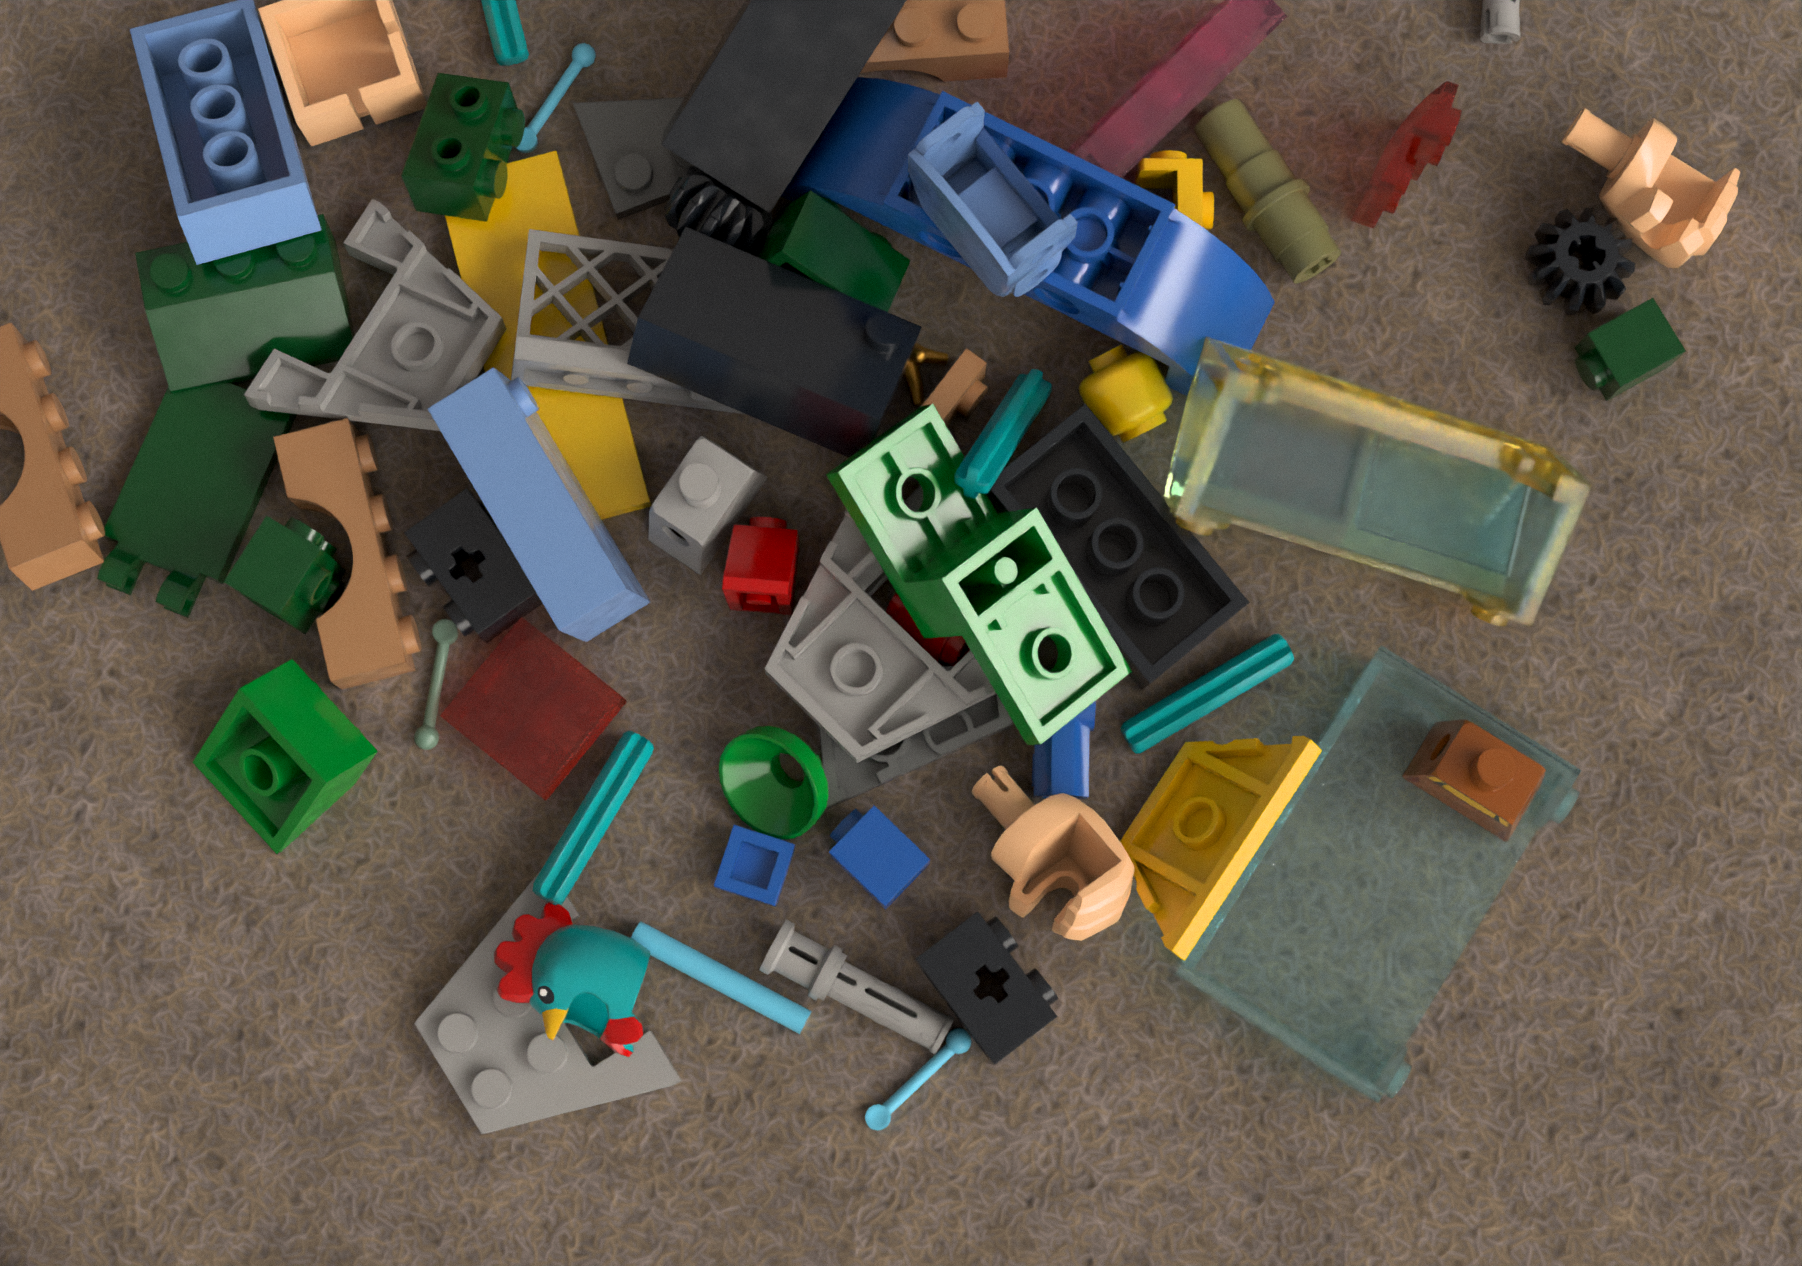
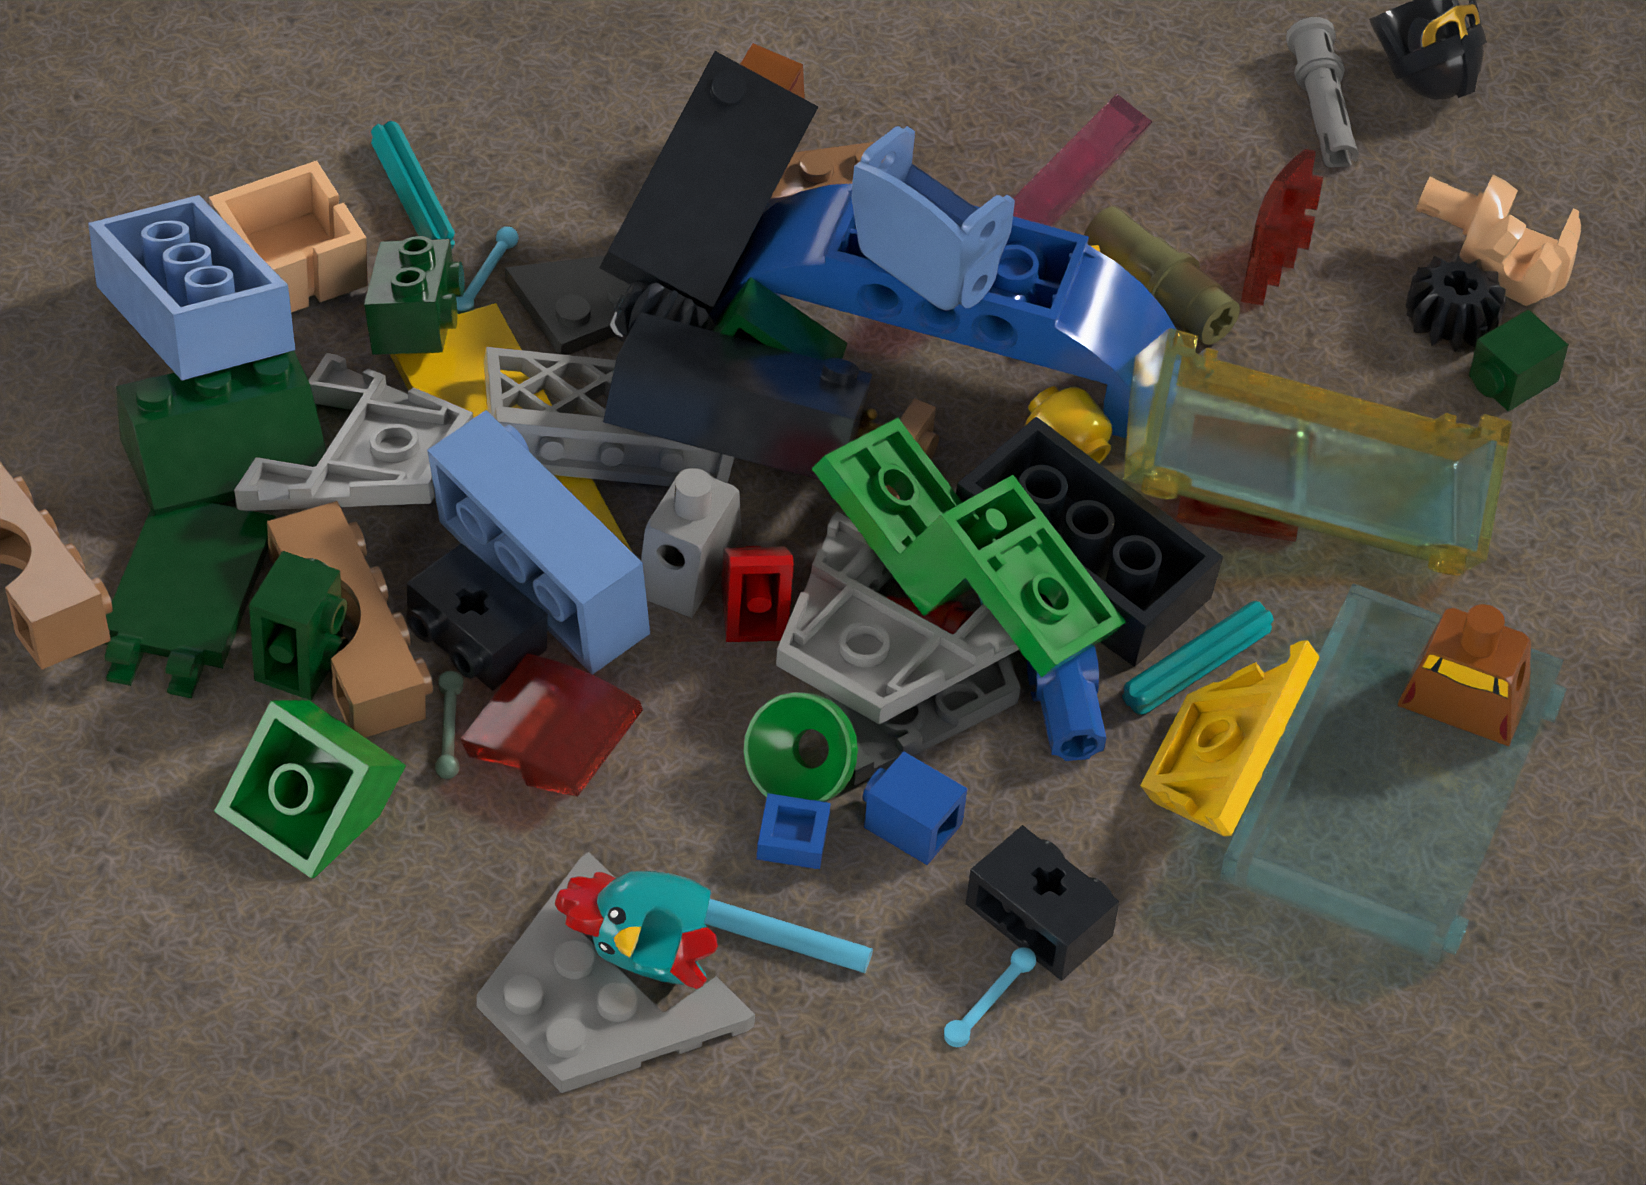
camera: 15 degrees left, 30 degrees down
(593, 818) = (627, 805): teal axle -> none
(827, 974) = (885, 911): light grey pin -> none
(1003, 433) = (963, 455): teal axle -> none
(1055, 848) = (1090, 780): light nougat piece -> none

